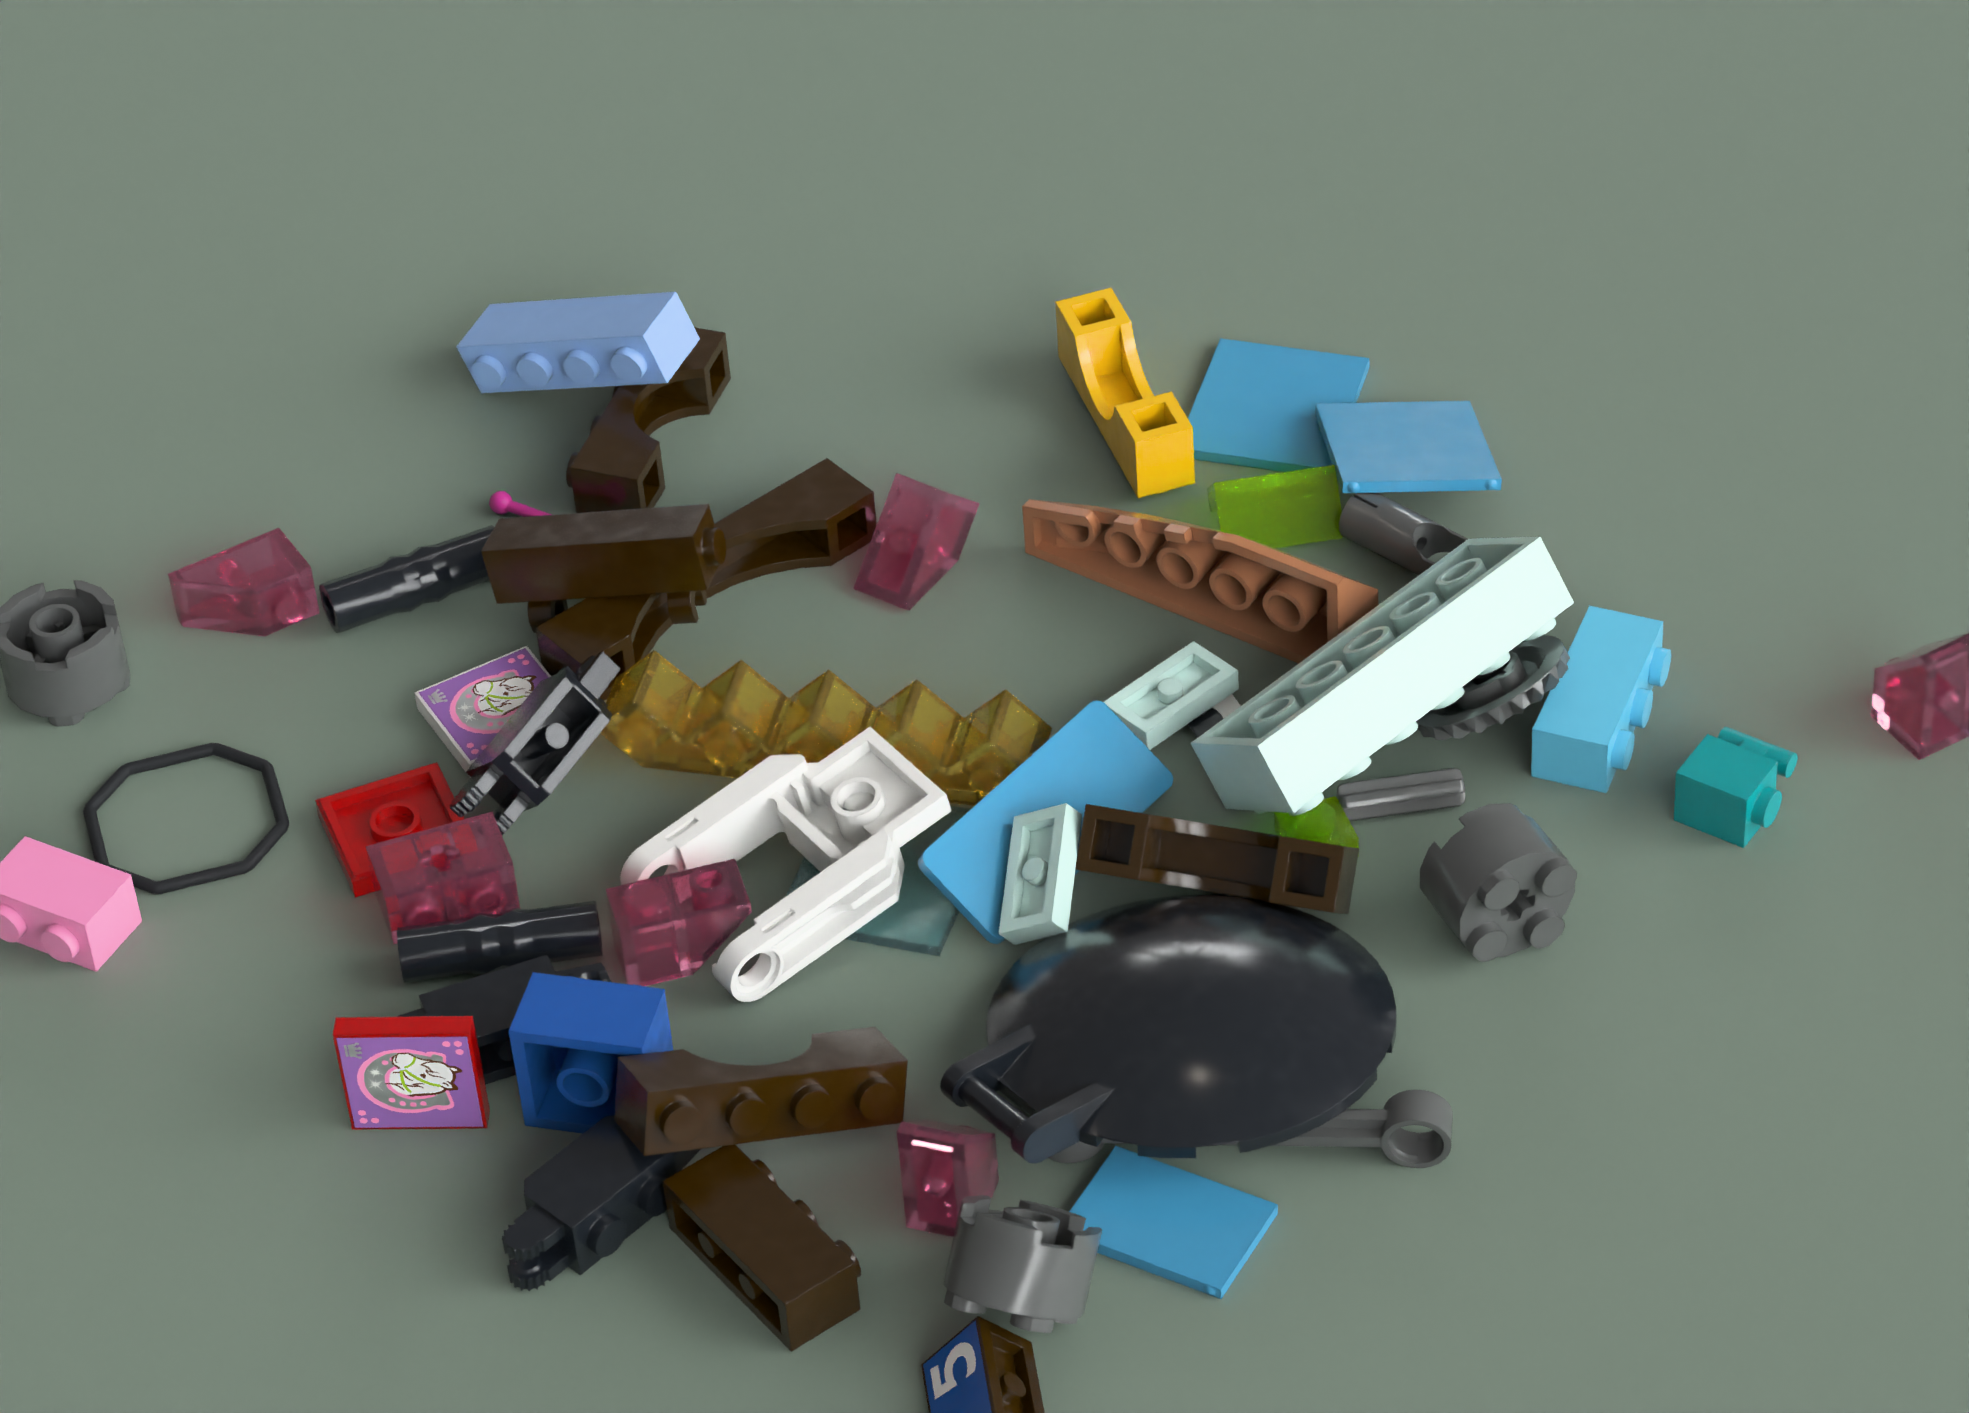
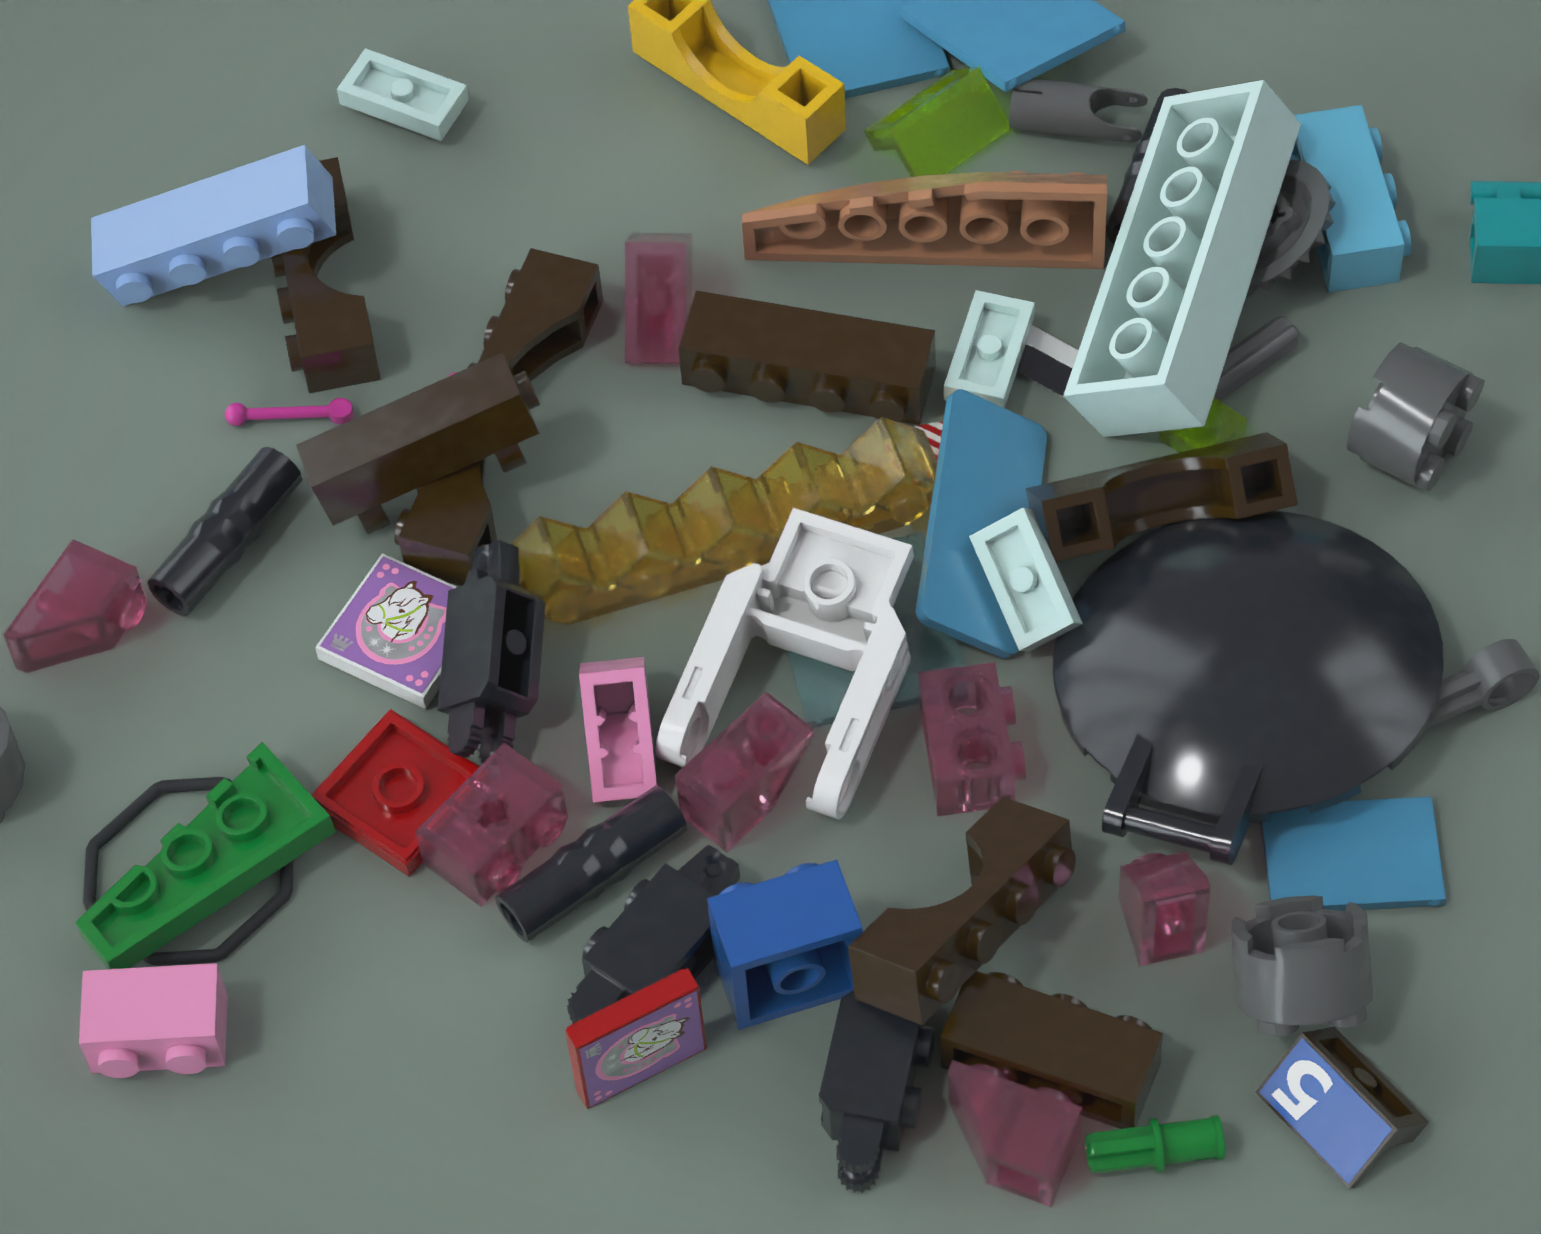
camera: 30 degrees left, 15 degrees up
(192, 810) = (224, 851): none -> green wing
(598, 838) = (618, 728): none -> bright pink arch
(678, 1296) = (1015, 1132): none -> clear pink slope
(794, 1361) = (1155, 1145): none -> green axle
(832, 316) = (403, 94): none -> light aqua plate
(895, 975) = (964, 739): none -> clear pink brick
(1002, 635) = (807, 357): none -> dark brown brick

